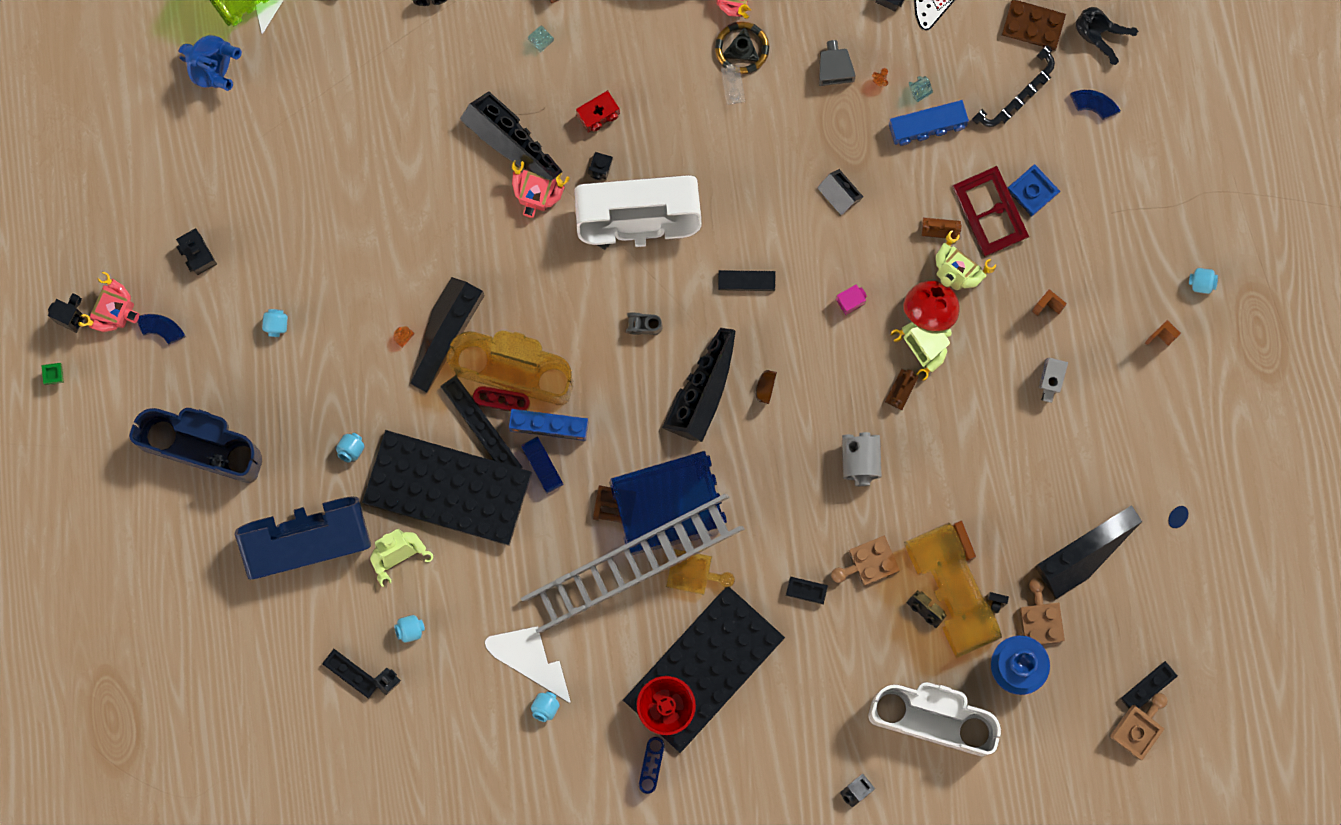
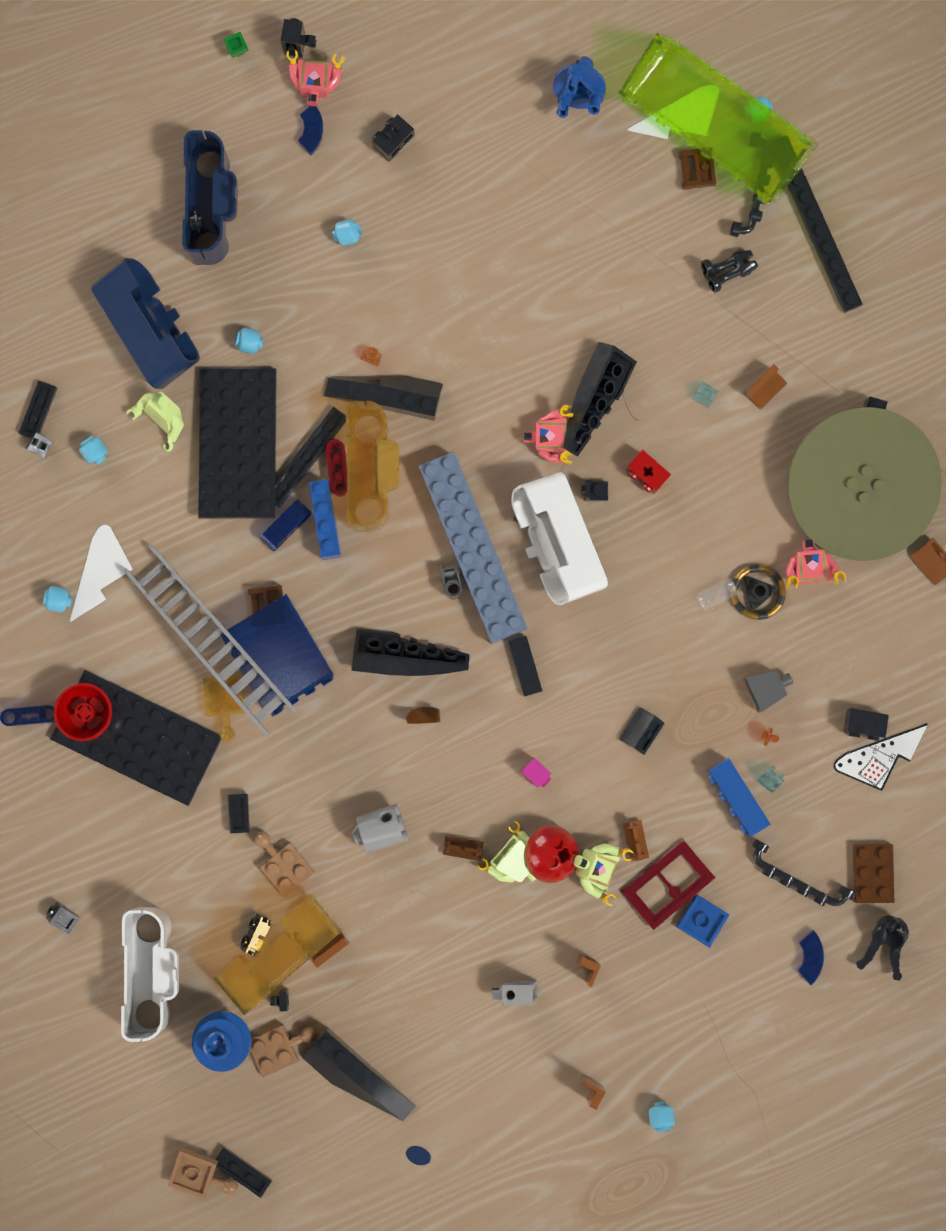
camera: 70 degrees right, 5 degrees up
(619, 294) = (472, 548): none -> sand blue brick

